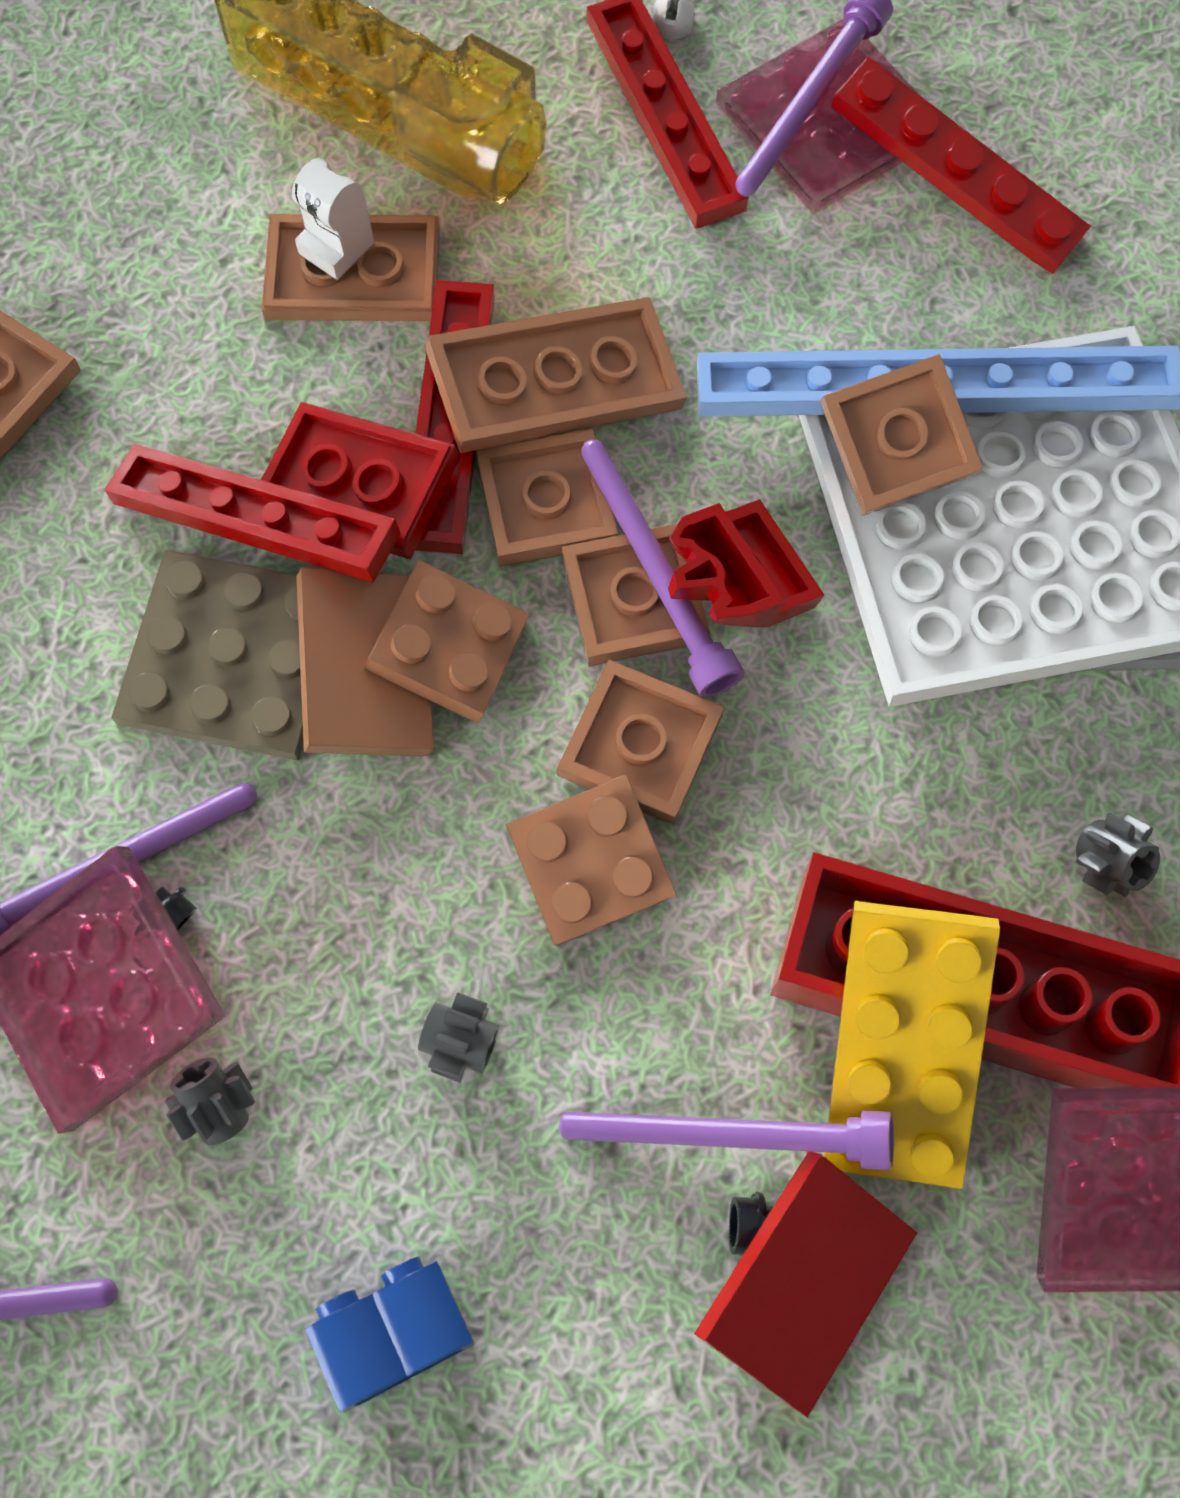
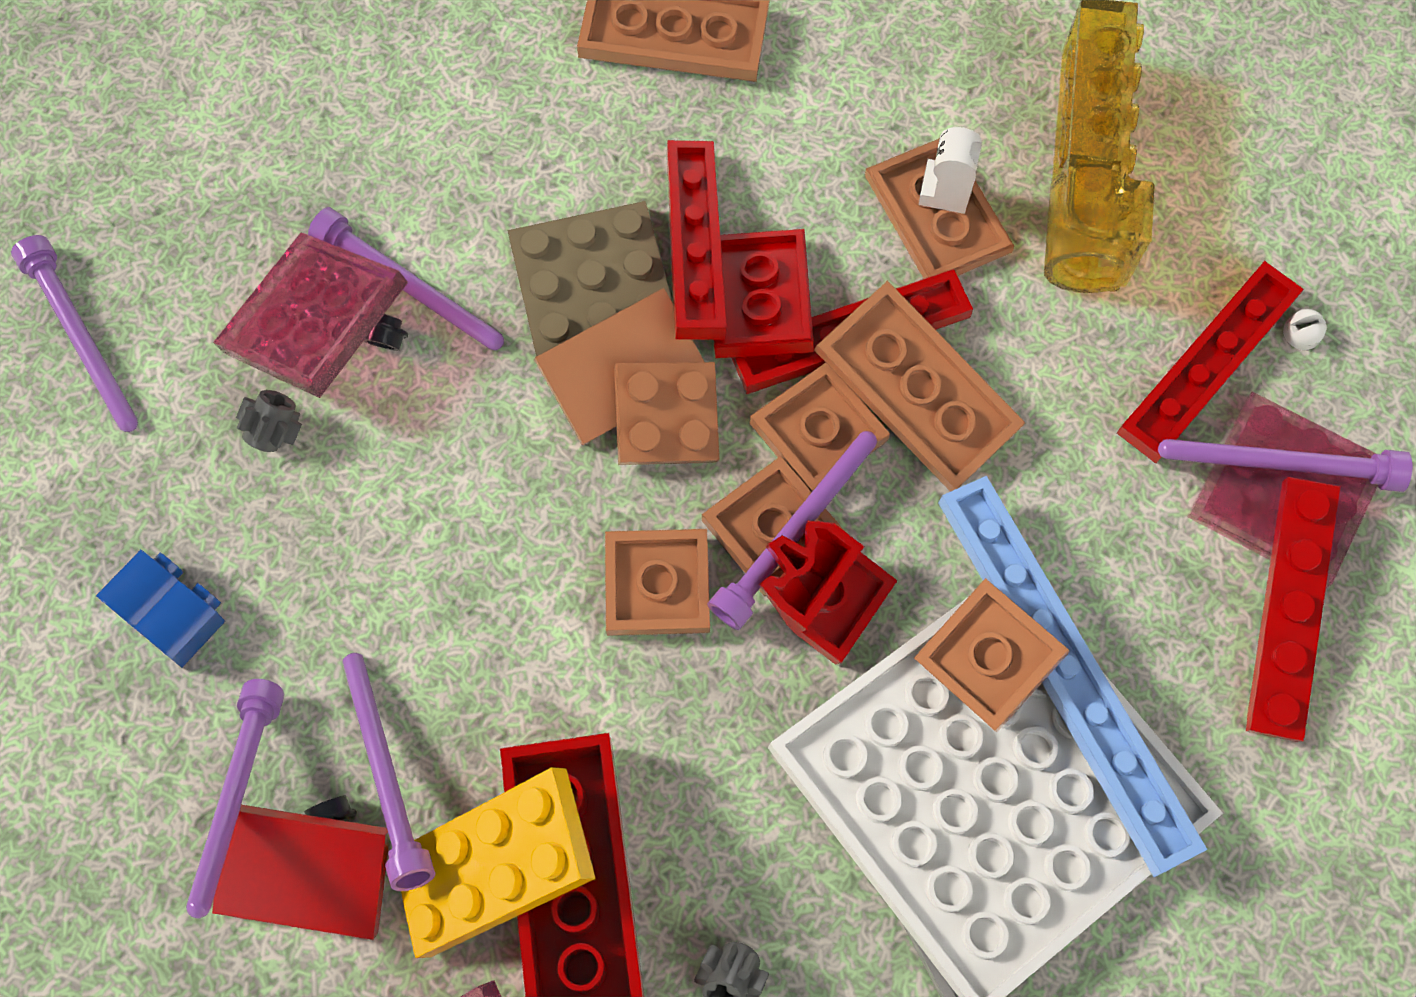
camera: 65 degrees right, 0 degrees up
(458, 1037) = (378, 556): dark grey gear -> none
(576, 1258) = (258, 706): none -> medium lavender piece
(591, 860) = (547, 587): nougat plate -> none

